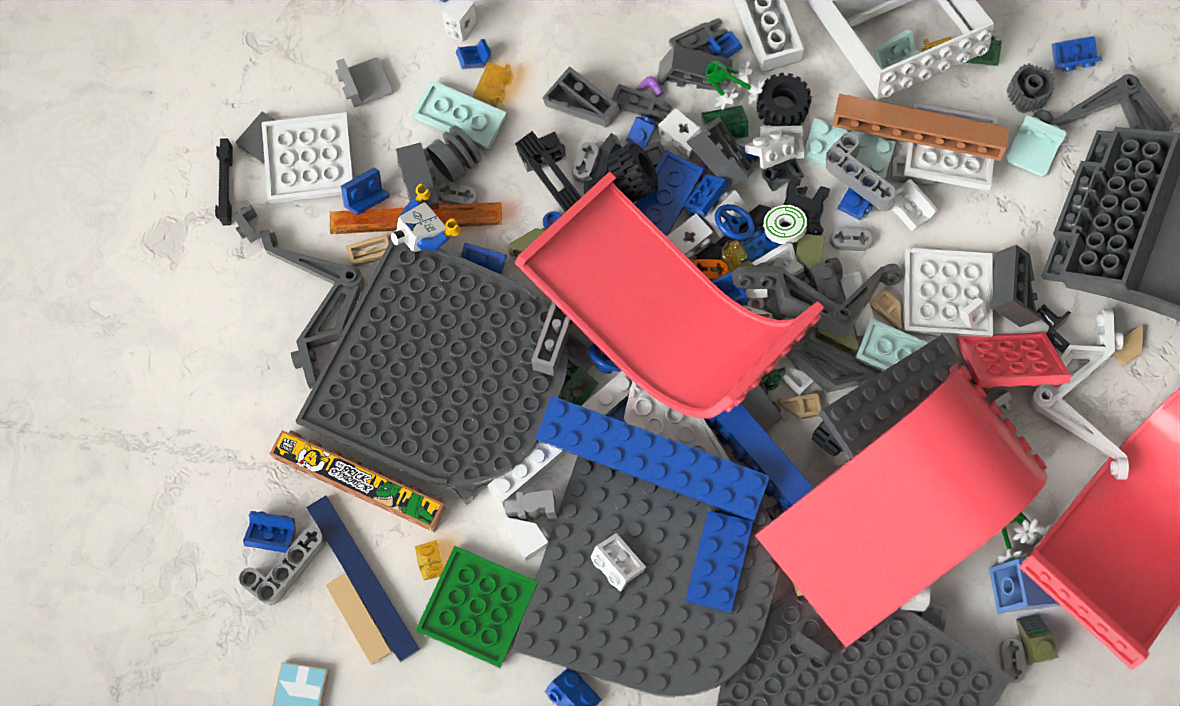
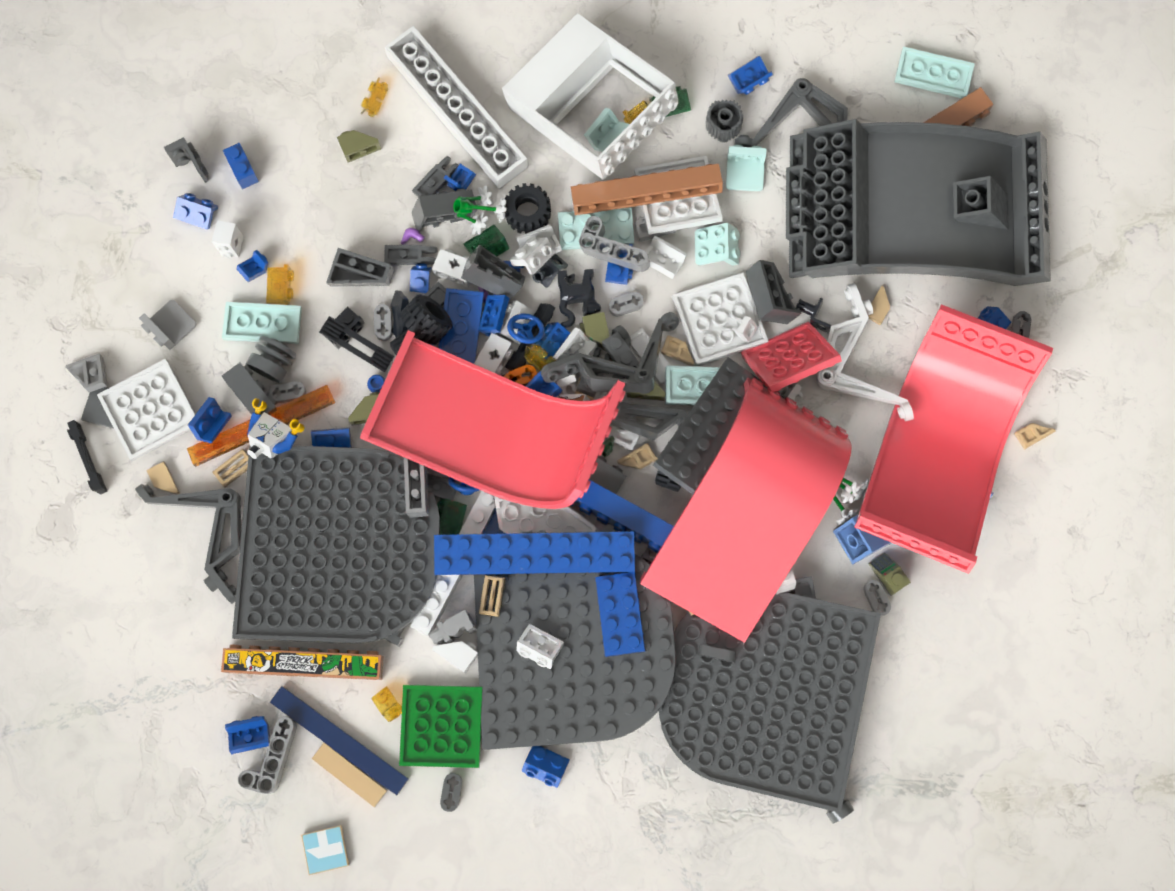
camera: 20 degrees left, 5 degrees up
(242, 218) = (114, 483): flat silver bracket -> none
(263, 98) = (89, 372): none -> light grey wing
(292, 233) = (162, 478): none -> tan tile
(464, 685) = (446, 792): none -> dark grey beam
(578, 505) = (492, 596): none -> tan tile
(782, 214) = (564, 305): white tile -> none
(974, 213) = (717, 244): none -> light aqua bracket

